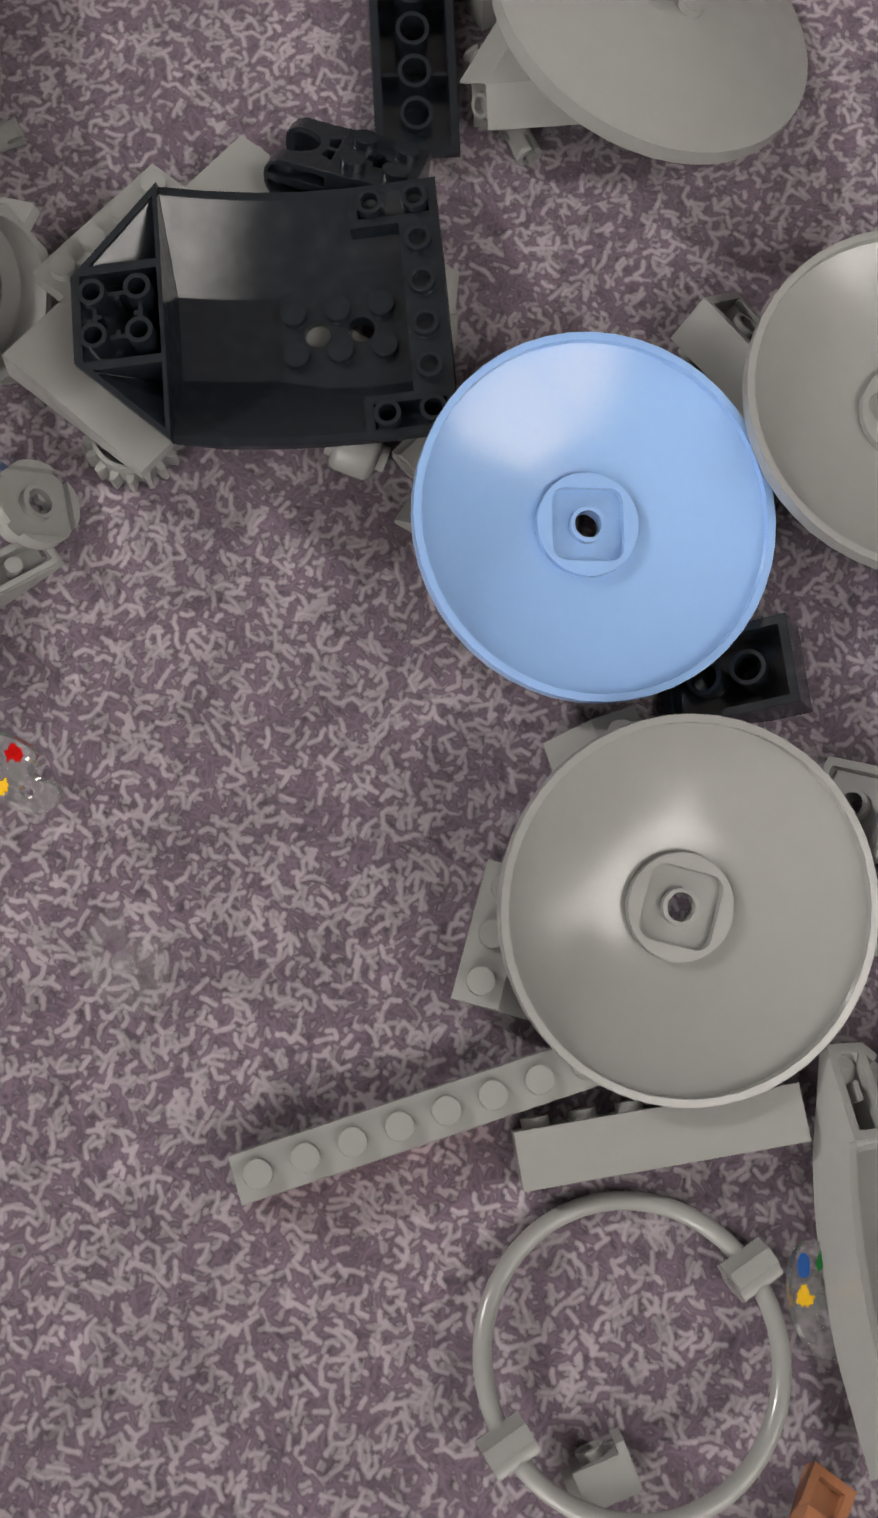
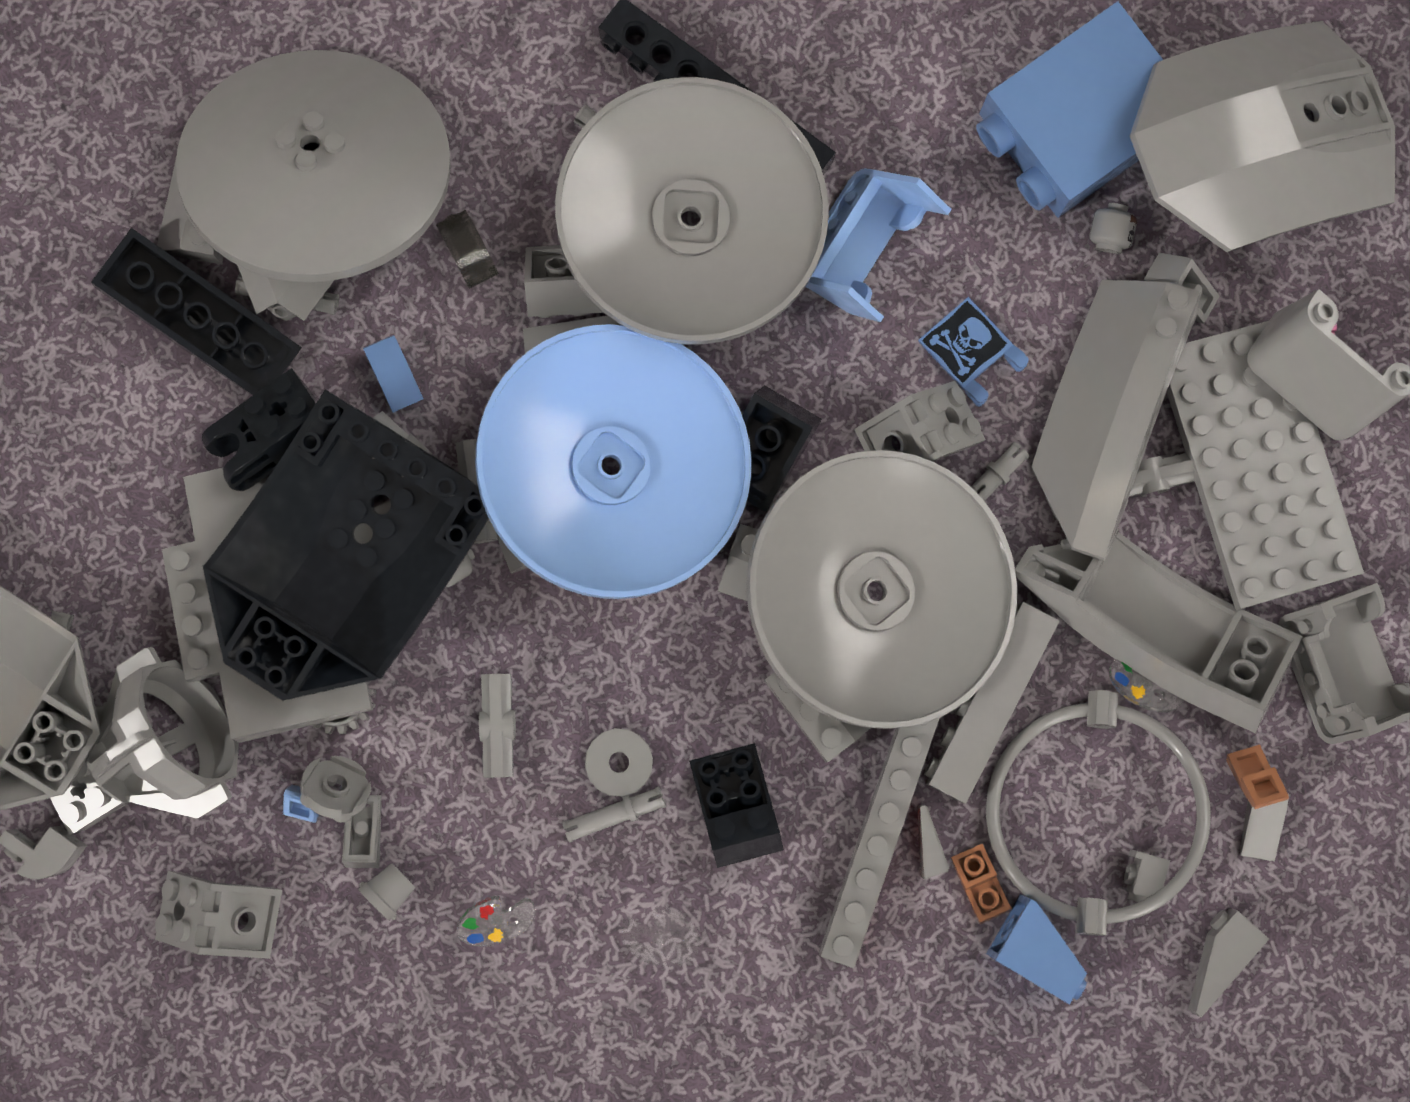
camera: 50 degrees left, 5 degrees up
(224, 621) = (497, 725): none -> light grey piece
(236, 822) = (614, 814): none -> light grey pin
(273, 751) = (598, 759): none -> light grey tile
(326, 937) = (736, 805): none -> black slope
(417, 1412) = (1037, 951): none -> medium blue slope
(439, 1195) = (931, 853): none -> light grey slope
(447, 1280) = (981, 883): none -> nougat slope
(504, 256) = (393, 373): none -> medium blue slope
(687, 231) = (467, 248): none -> clear smoke brick

